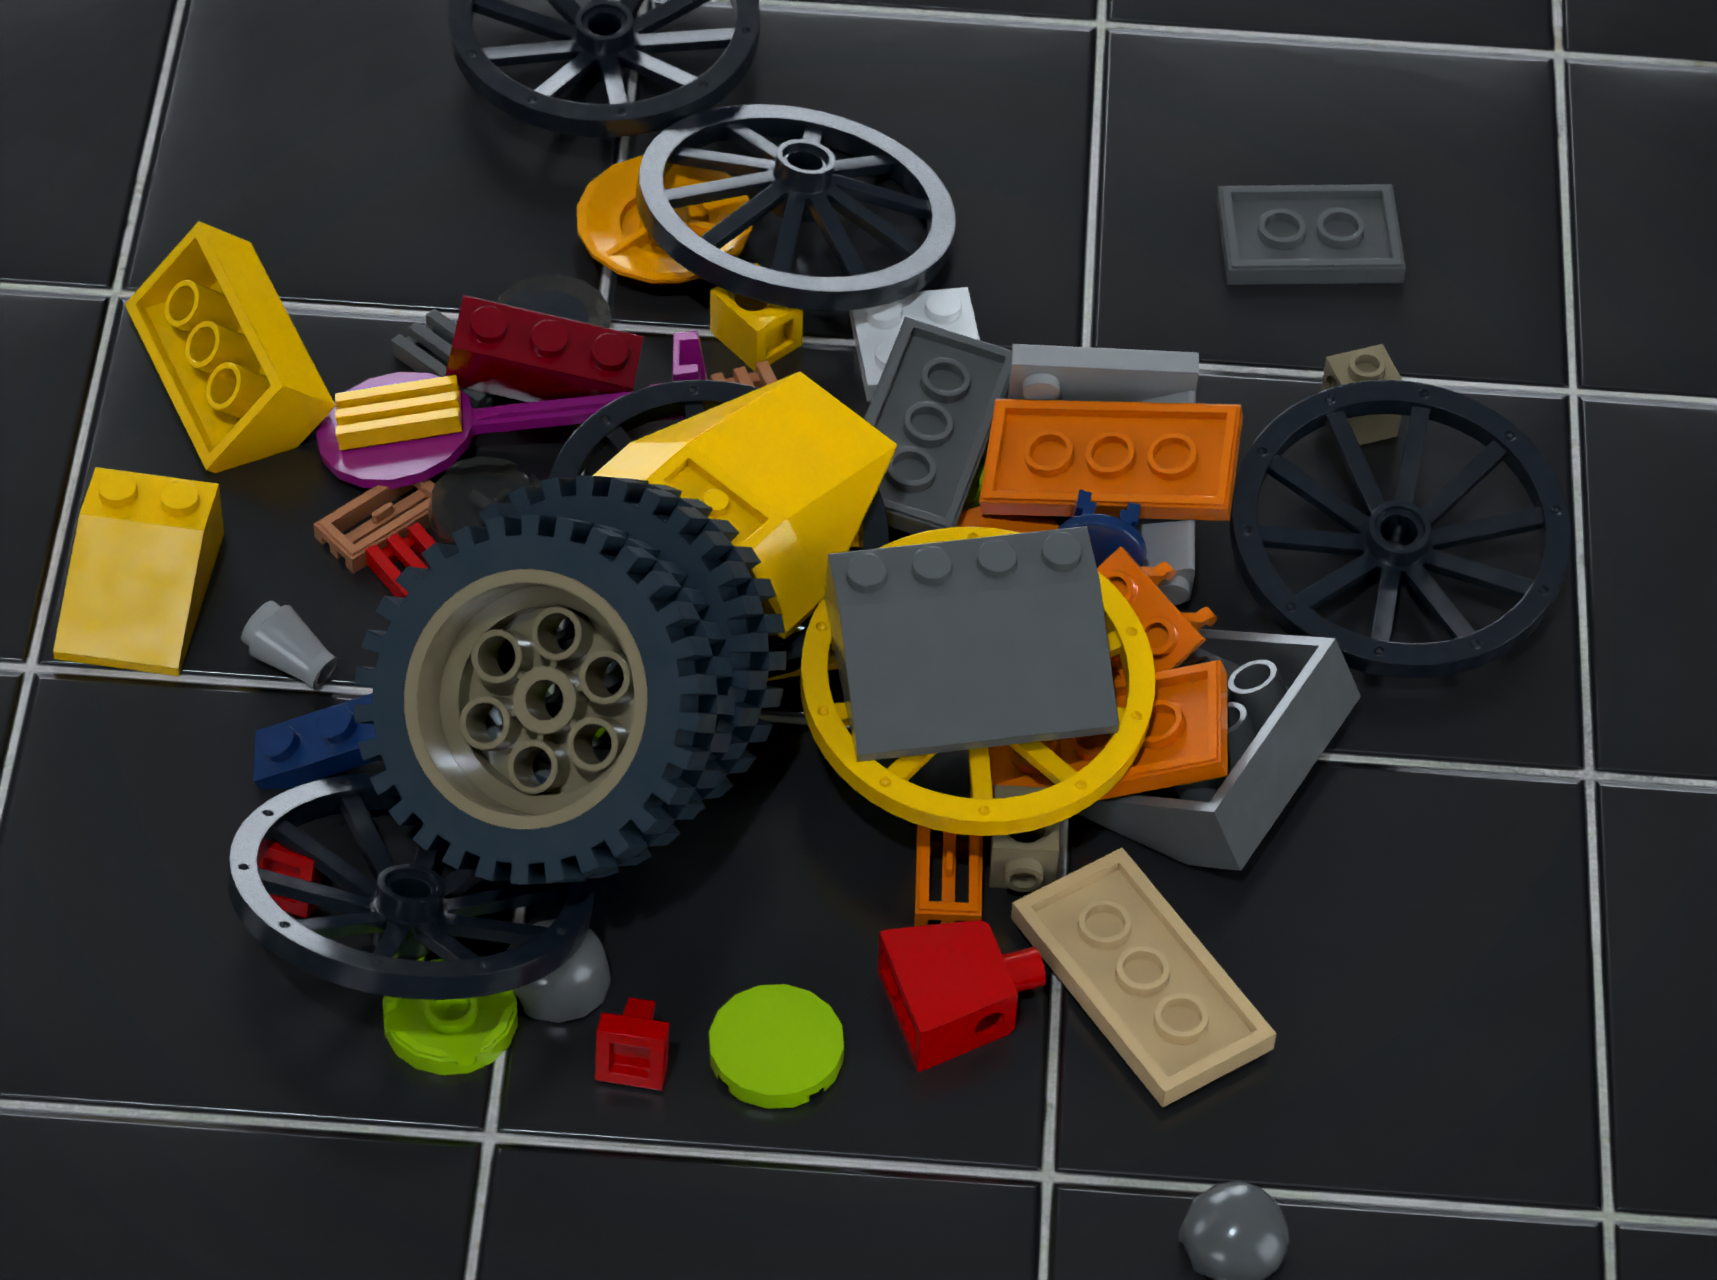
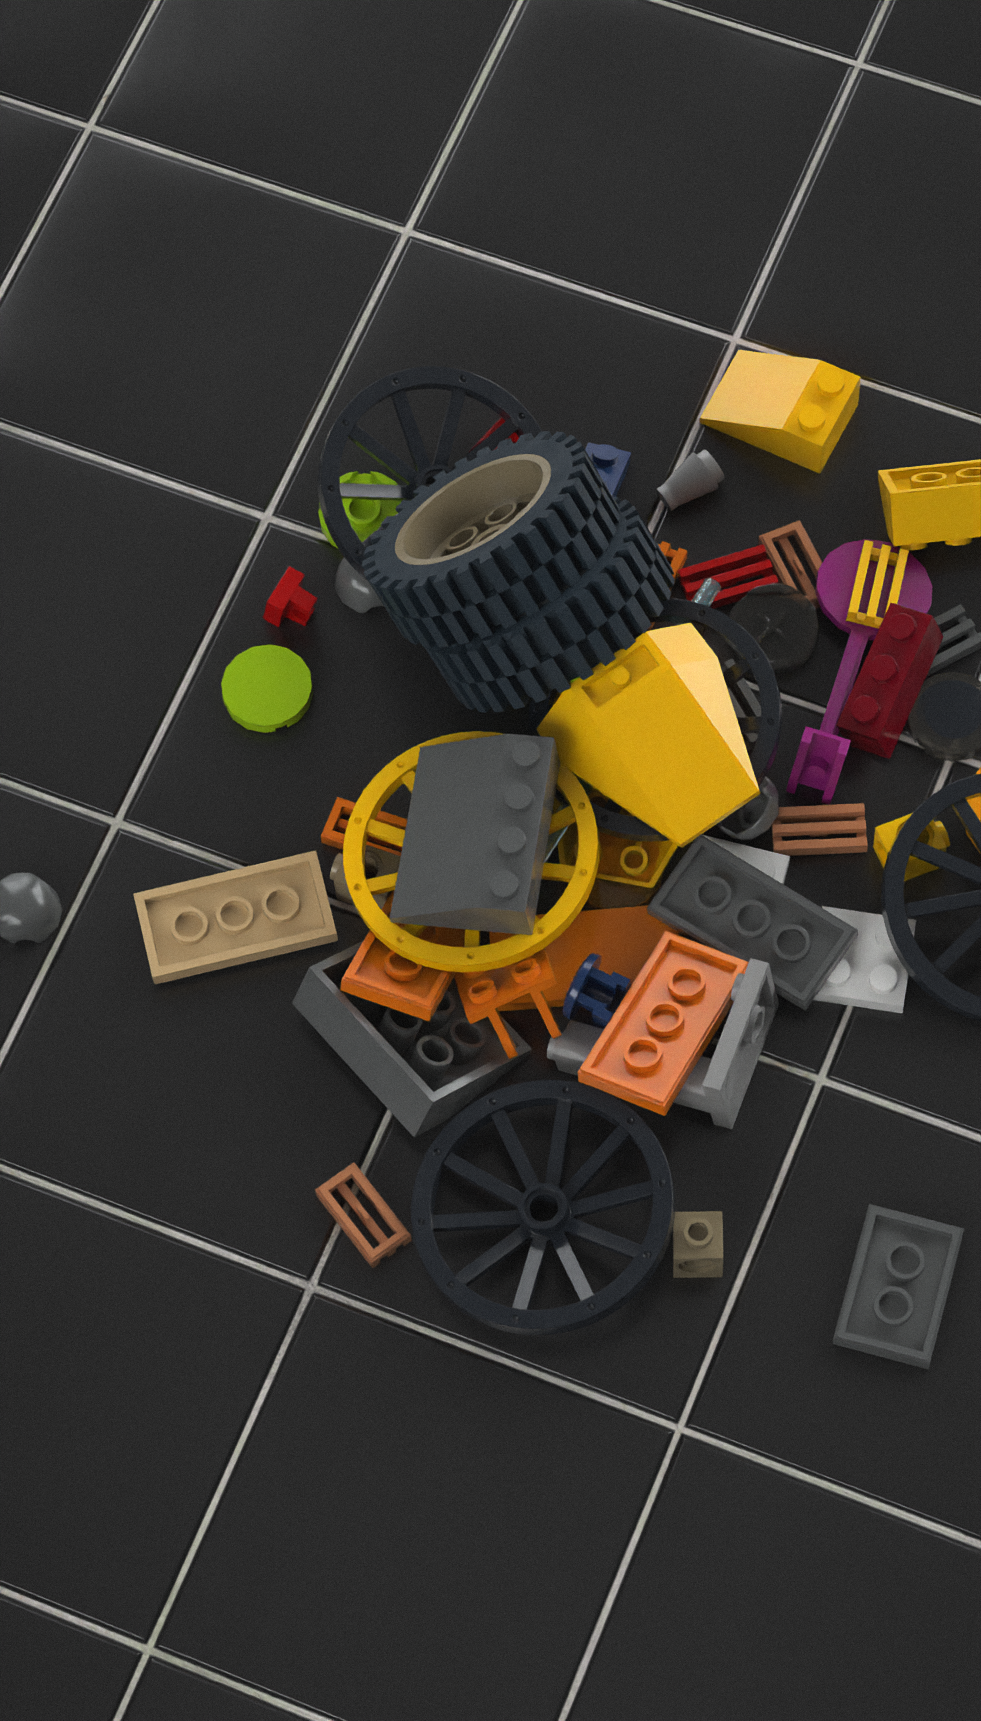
camera: 115 degrees right, 15 degrees up
(953, 987) = (265, 796): red torso -> none
(1454, 771) = (386, 1245): none -> nougat tile

